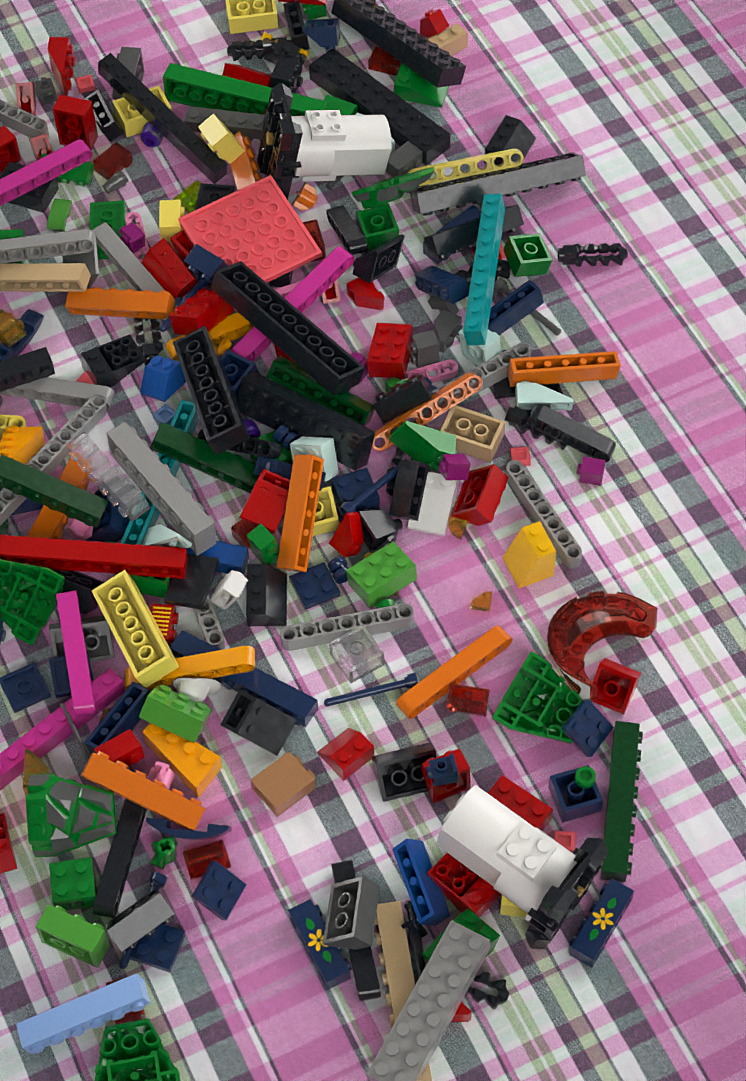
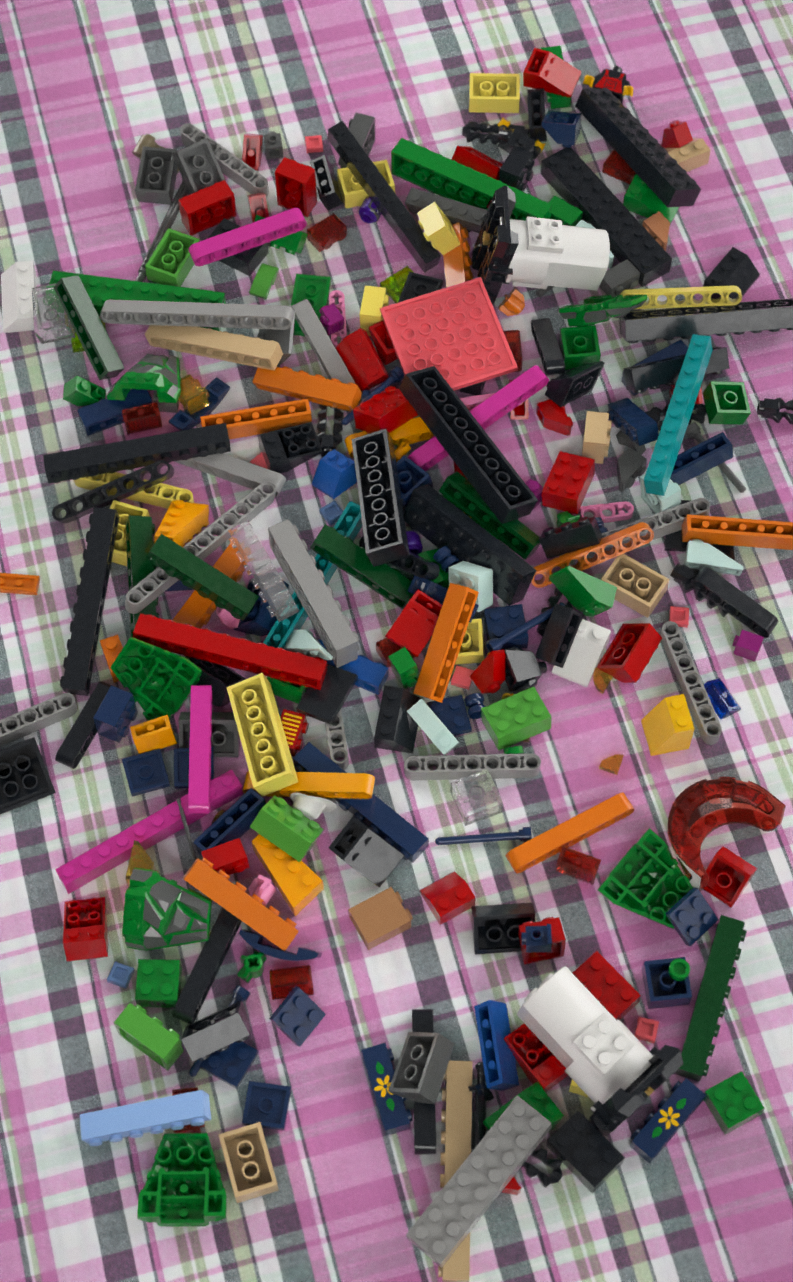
camera: 10 degrees right, 5 degrees up
(26, 649) = (153, 734): none -> light orange brick
(33, 884) = (120, 975): none -> medium blue tile
(62, 61) = (294, 117): red slope -> none
(80, 339) = (262, 418): none -> orange brick
(115, 182) = (326, 255): dark grey cone -> none
(195, 1038) = (248, 1162): none -> tan brick
(203, 982) = (267, 1105): none -> dark blue plate
(204, 263) = (397, 360): dark blue brick -> none
(229, 589) = (362, 708): white brick -> none
(302, 595) = (433, 727): none -> light aqua slope
(321, 546) = (461, 677): none -> coral tile
(409, 303) = (596, 436): none -> tan brick
(424, 349) = (603, 487): dark grey brick -> none
(432, 109) = (658, 228): none -> nougat slope
(454, 467) = (609, 619): magenta brick -> none
(527, 966) = (585, 1151): none -> black brick
(576, 524) = (721, 698): none -> clear blue slope
(662, 894) = (733, 1102): none -> green brick

